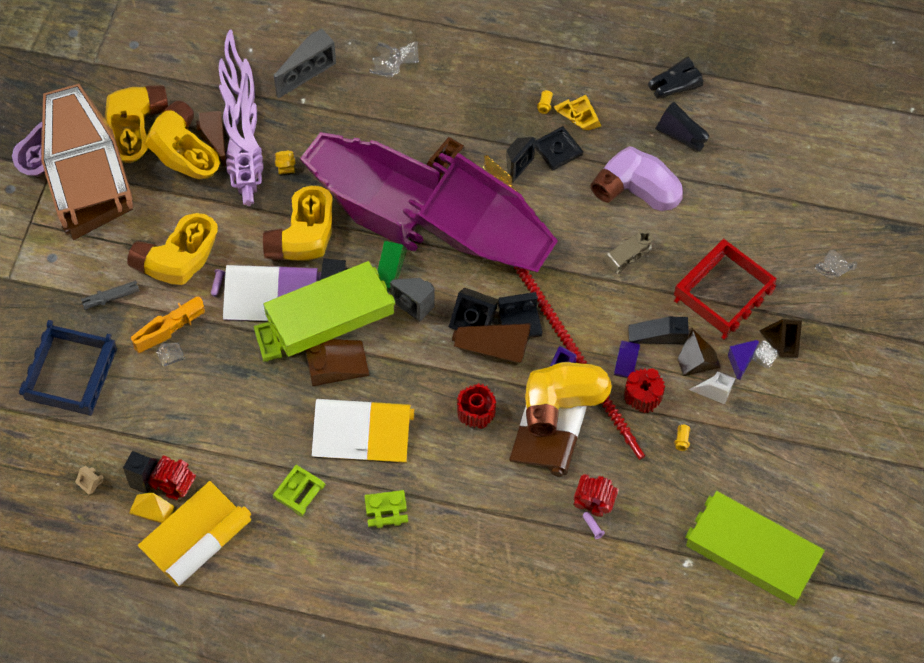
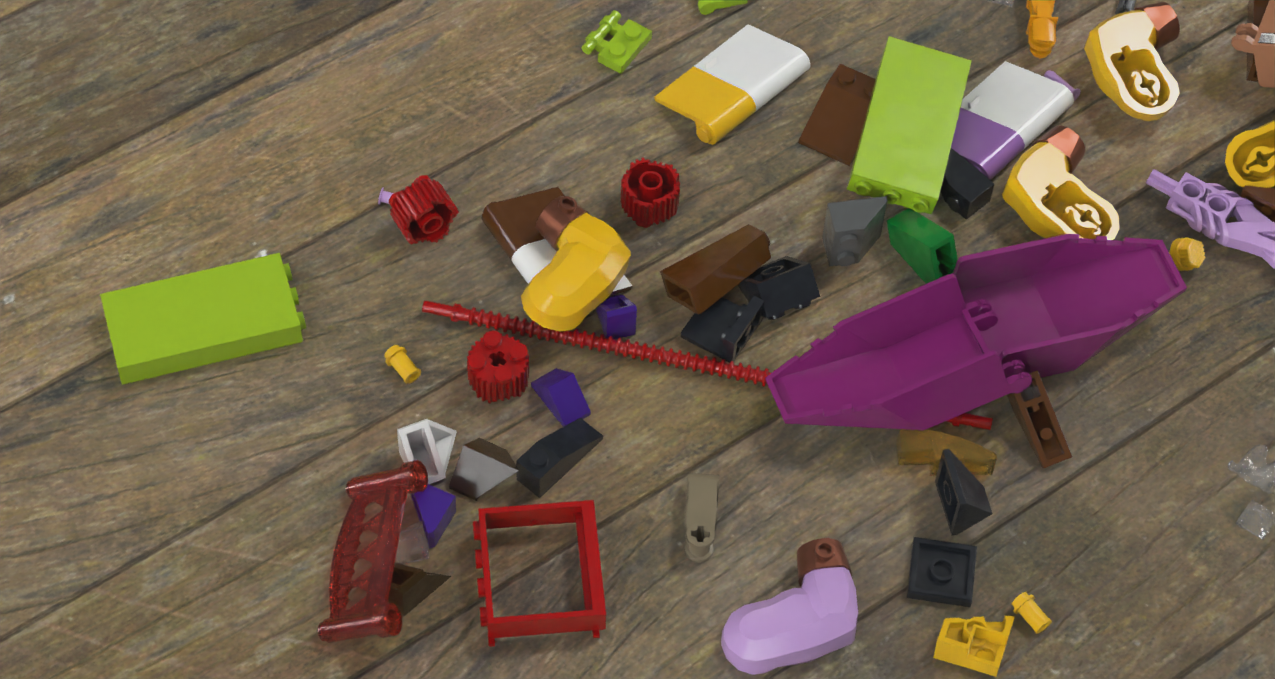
camera: 130 degrees right, 5 degrees down
(756, 370) = (373, 612): none -> clear red piece

